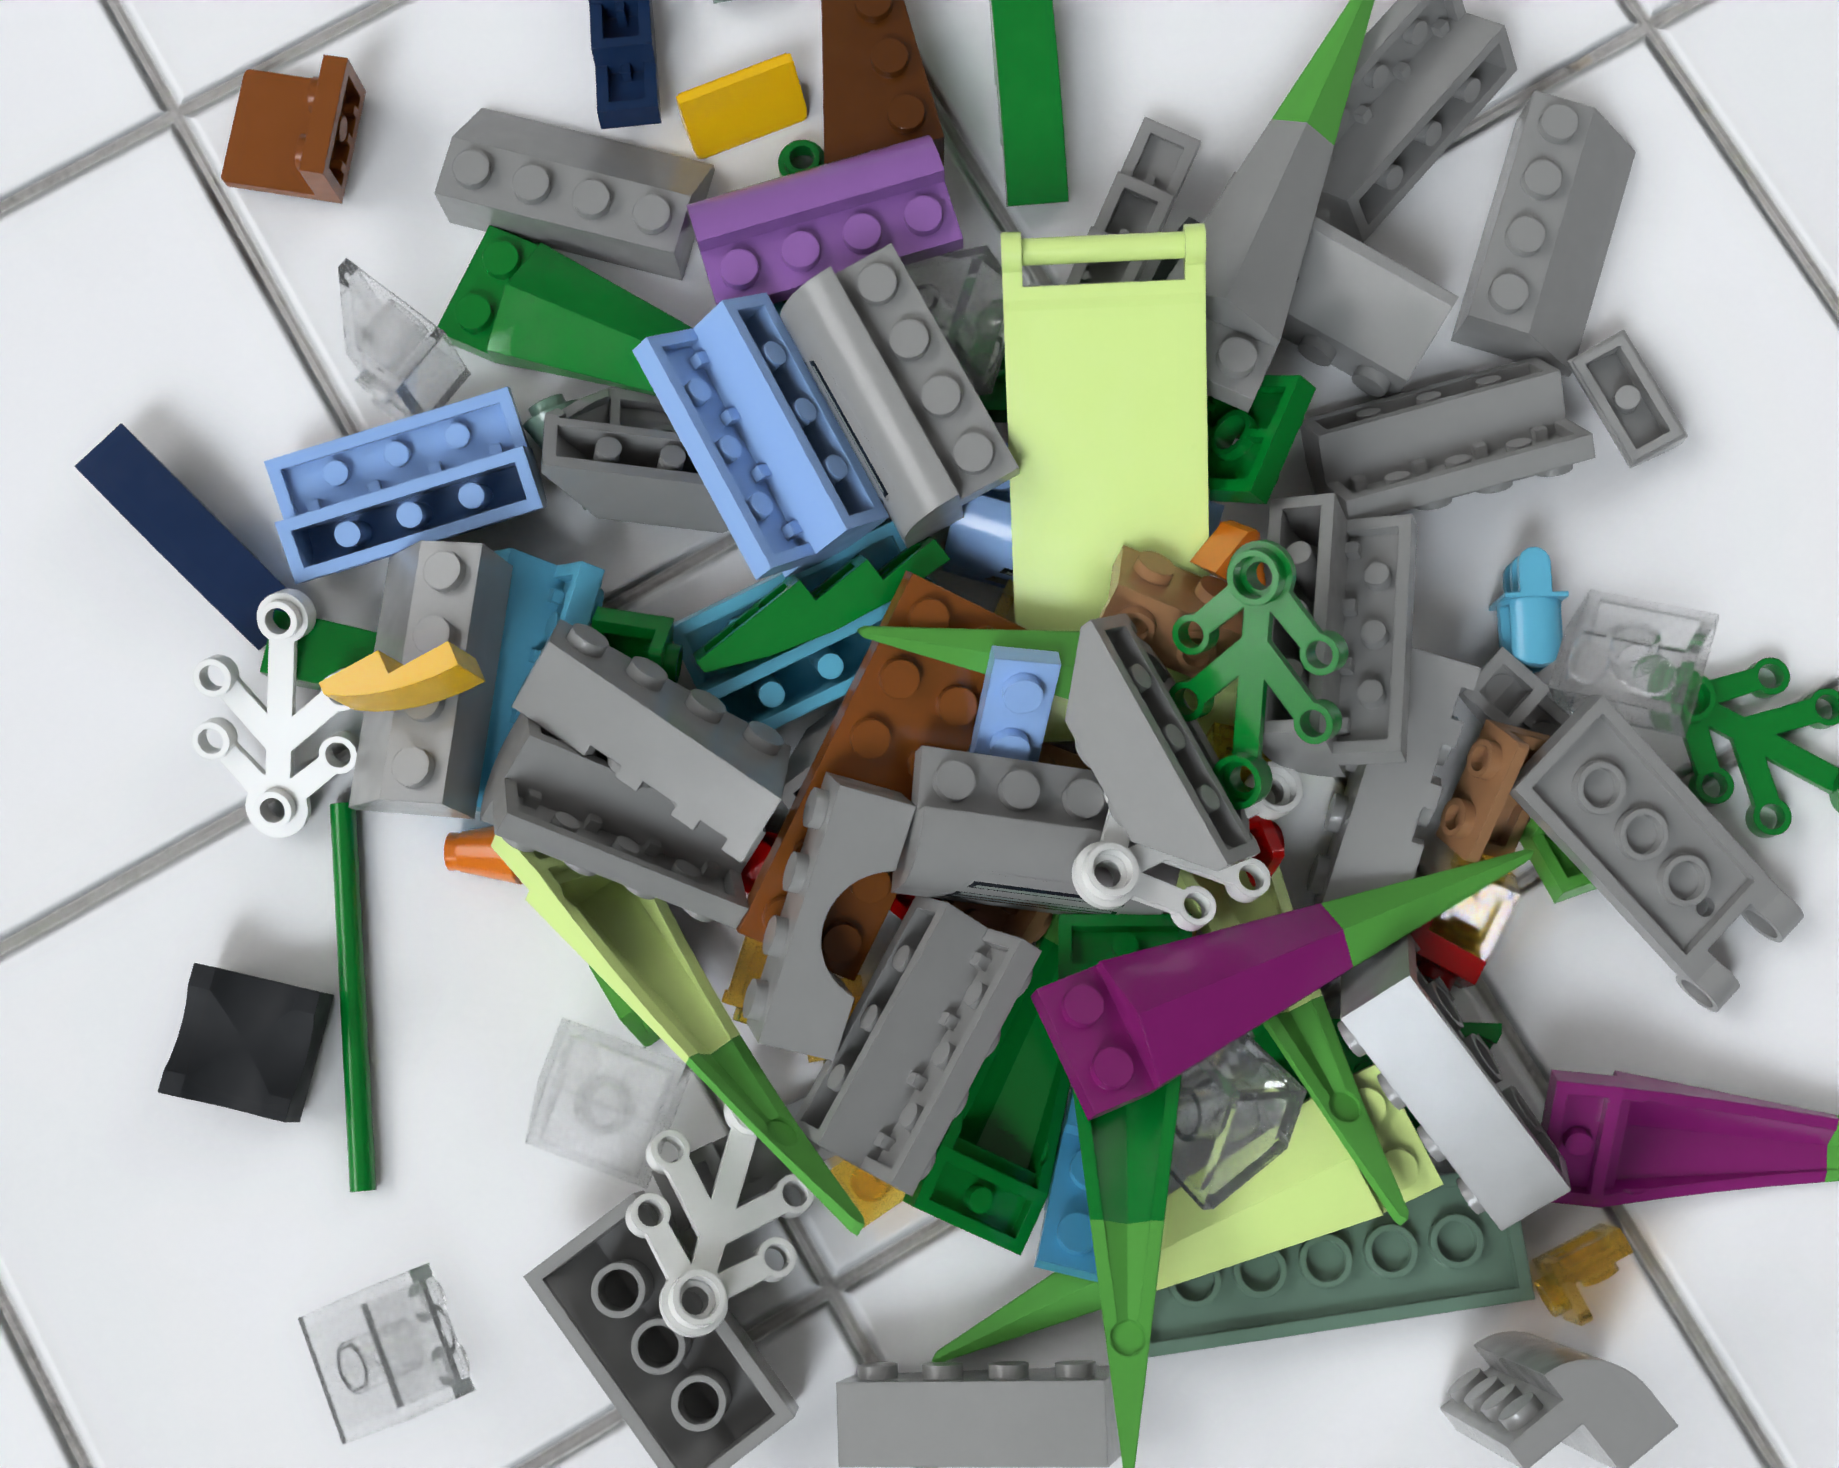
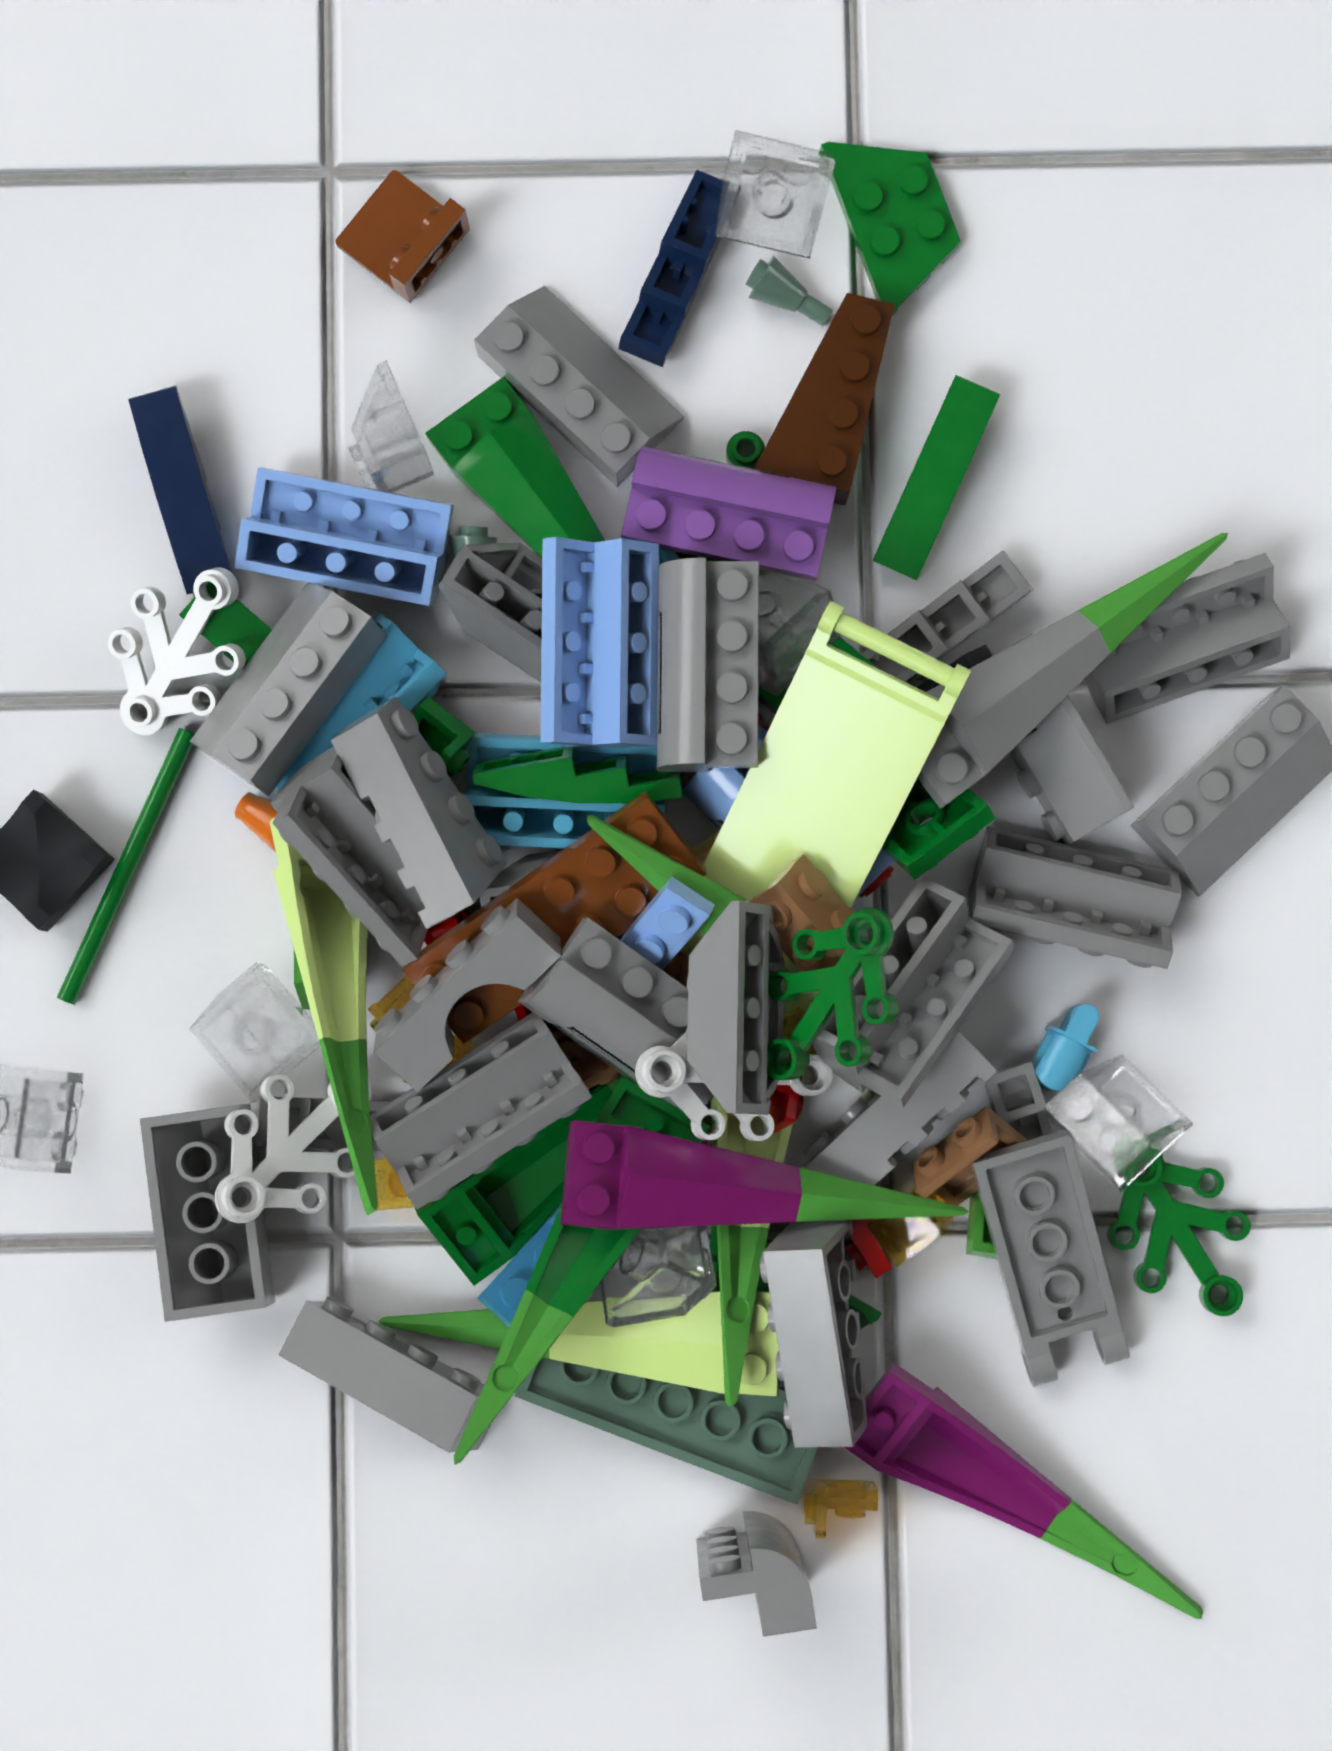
camera: 25 degrees right, 5 degrees up
(387, 685) = (259, 683): yellow slope -> none
(742, 106) = (726, 386): yellow slope -> none
(1220, 547) = (870, 893): orange slope -> none
(1627, 399) = (1223, 937): light grey slope -> none

